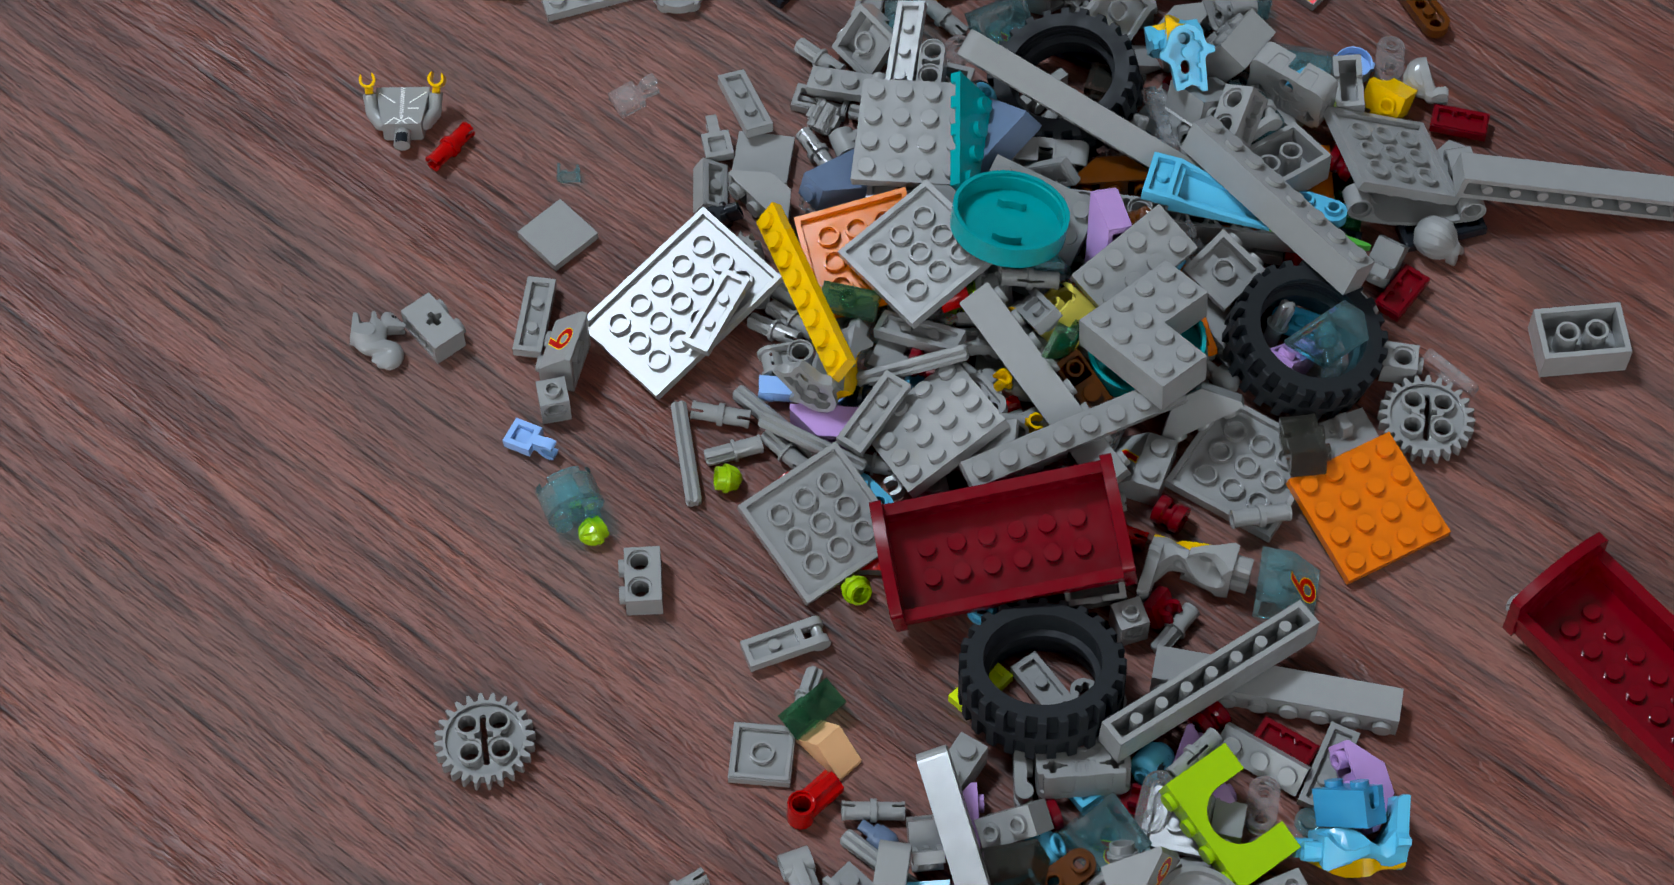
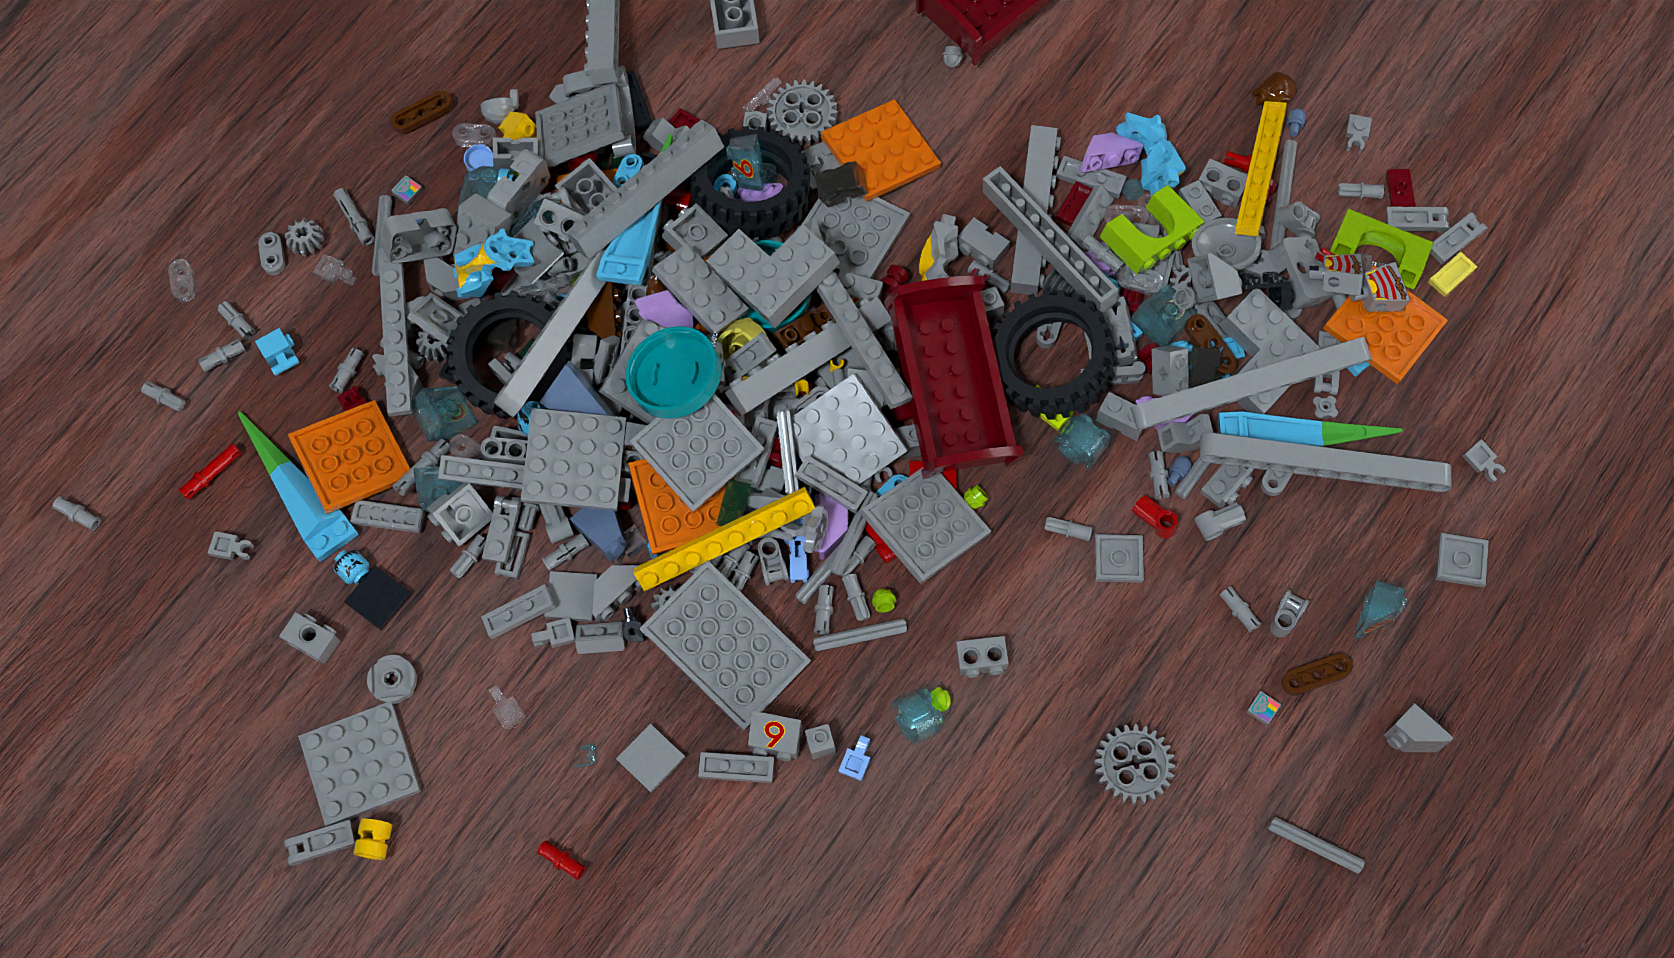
camera: 90 degrees left, 10 degrees up
(371, 339) = (764, 904): light grey animal -> none
(403, 111) = (526, 904): light grey torso -> none
(434, 327) = (748, 863): light grey brick -> none
(716, 312) = (742, 609): plate -> none
(784, 643) = (1026, 547): light grey plate -> none
(812, 709) = (1089, 523): clear green slope -> none
(823, 117) = (534, 546): light grey gear -> none
(831, 749) = (1108, 510): light nougat slope -> none
(921, 711) = (1082, 440): none -> clear light blue brick
(969, 130) = (585, 412): teal wing -> none
(1039, 681) = (1049, 360): light grey plate -> none
(1062, 341) = (777, 335): clear green slope -> none
(1226, 615) = (982, 245): none -> light grey brick
(1260, 515) = (897, 216): light grey pin -> none
(1283, 581) = (949, 201): clear light blue slope -> none
(1349, 804) = (1131, 155): dark azure brick -> none
(1438, 239) = (646, 101): light grey piece -> none
(1459, 122) = (535, 87): dark red plate -> none

